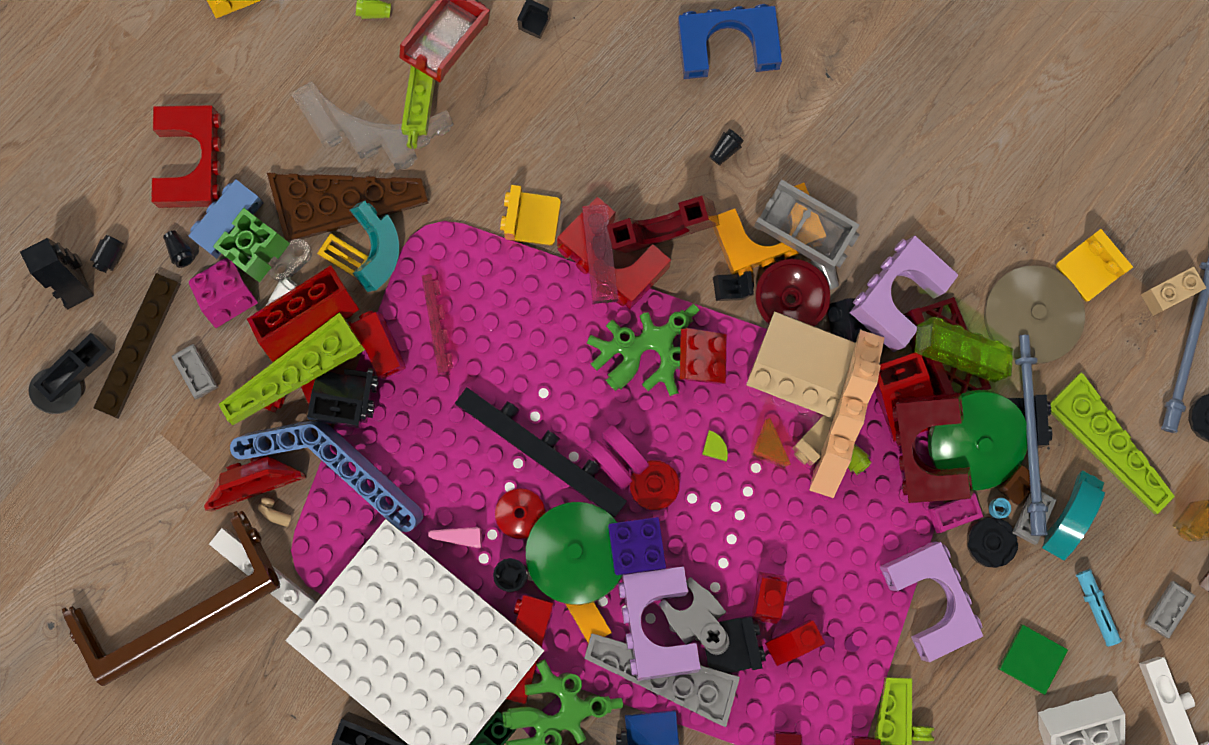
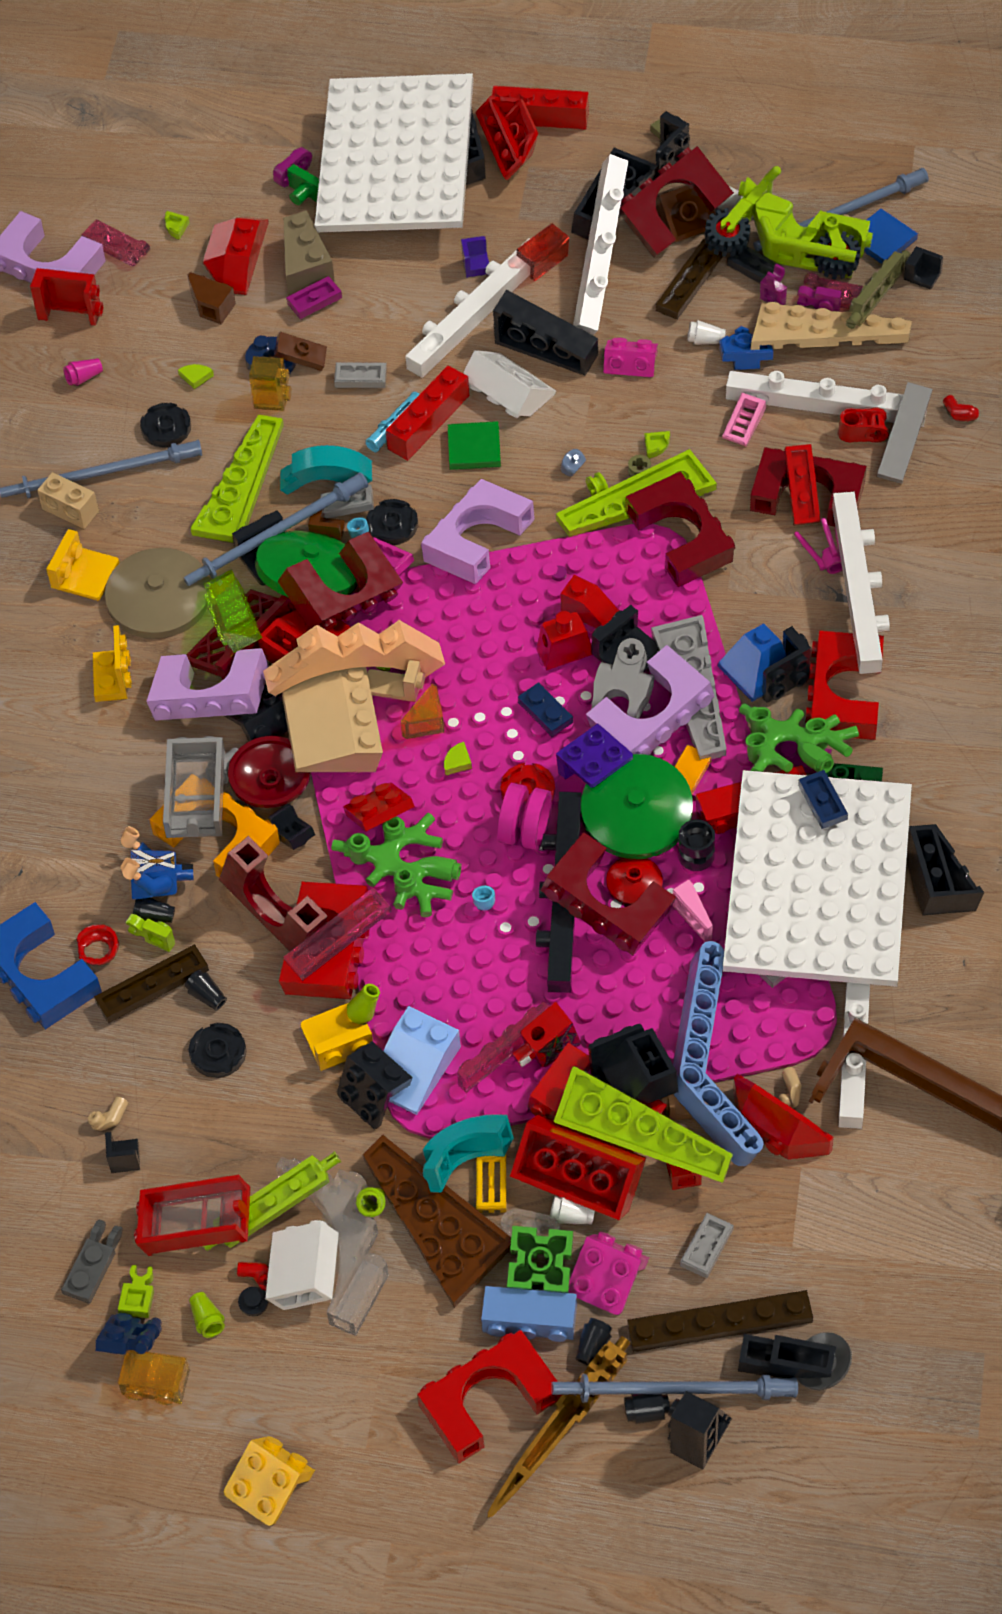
camera: 120 degrees left, 25 degrees down
(66, 340) = (764, 1387): none -> sand blue bar
(136, 200) = (569, 1410): none -> pearl gold piece
(358, 85) = (302, 1265): none -> white brick
(362, 45) = (253, 1301): none -> black plate
(376, 160) = (367, 1206): none -> lime cone
(382, 62) = (257, 1271): none -> red arm
(418, 357) = (546, 1037): none -> red torso
(466, 215) = (370, 1081): none -> black bracket
(467, 689) = (823, 799): none -> dark blue plate
(468, 255) = (424, 1051): none -> light blue slope
(471, 476) = (624, 926): none -> dark red arch
(542, 241) = (363, 1005): none -> lime cone
(570, 27) = (103, 1121): none -> tan arm
(578, 131) = (217, 1050): none -> black tile
(578, 389) = (483, 897): none -> medium azure hinge
(631, 147) = (204, 989): none -> black cone
(662, 113) = (150, 983): none -> dark brown plate
(703, 138) = (155, 933): none -> lime plate
(713, 82) = (97, 933): none -> red piece
(719, 544) = (545, 709): none -> dark blue plate
(755, 160) = (151, 871): none -> torso
(961, 730) = (572, 462): none -> sand blue piece
(973, 235) = (111, 670): none -> yellow bracket
(1089, 639) = (427, 412): none -> red brick

